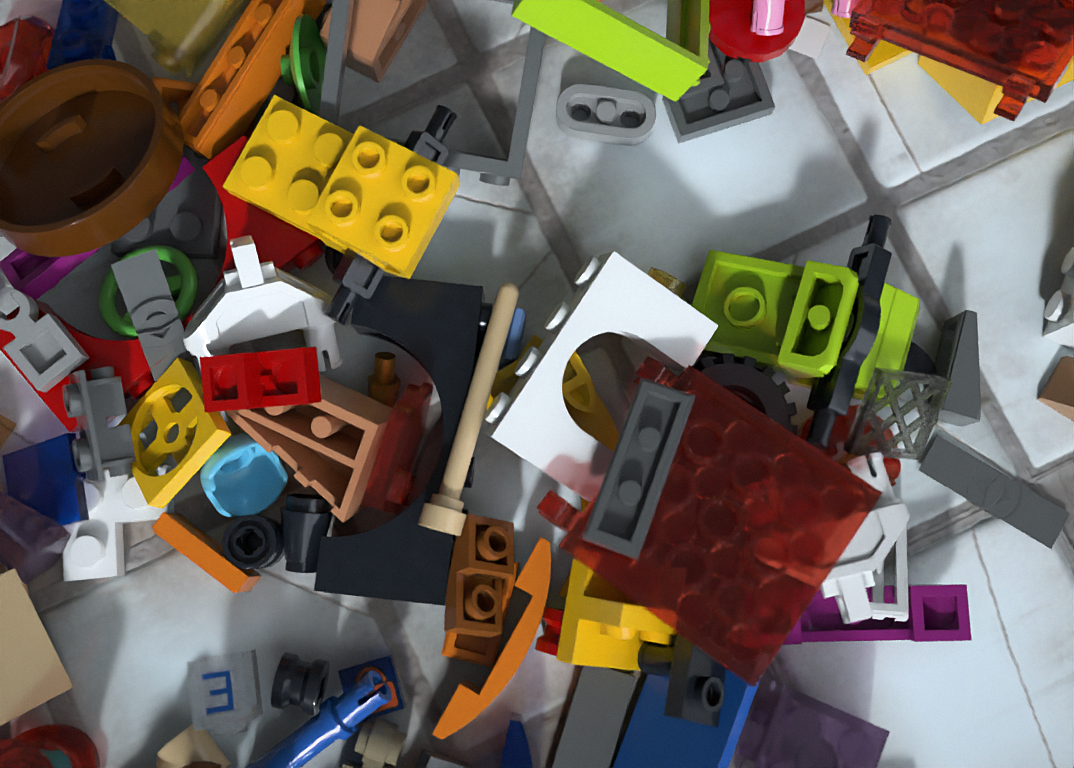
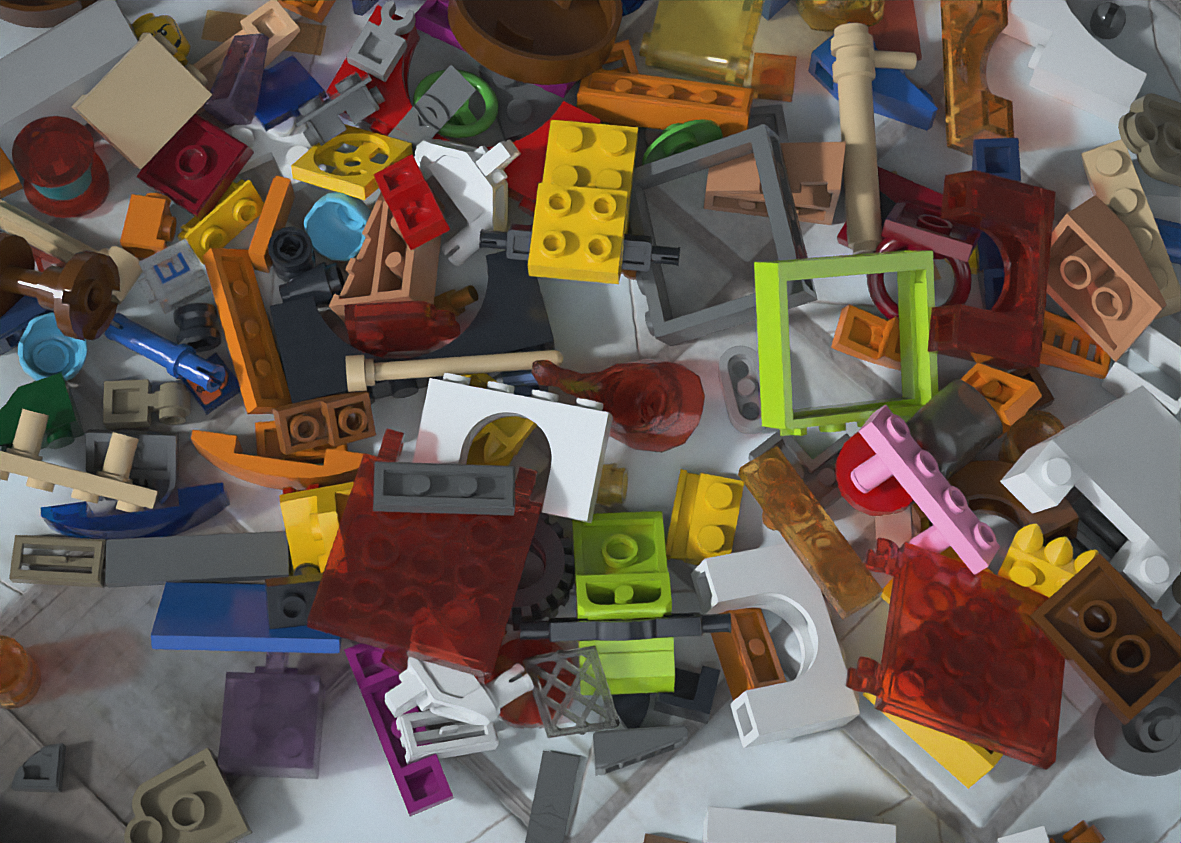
camera: 70 degrees right, 10 degrees down
(97, 617) = (196, 166): none -> dark red tile
(148, 700) = (148, 225): none -> orange brick
(169, 587) = (230, 216): none -> yellow hinge
(326, 626) = (247, 330): none -> orange plate
(581, 211) = (632, 394): none -> clear red hat
(728, 210) = (703, 517): none -> yellow plate
(806, 102) = (809, 532): none -> clear orange plate
(913, 228) = (747, 652): none -> orange slope
(928, 284) = (691, 695): none -> black panel
(960, 165) = (780, 583): none -> white arch

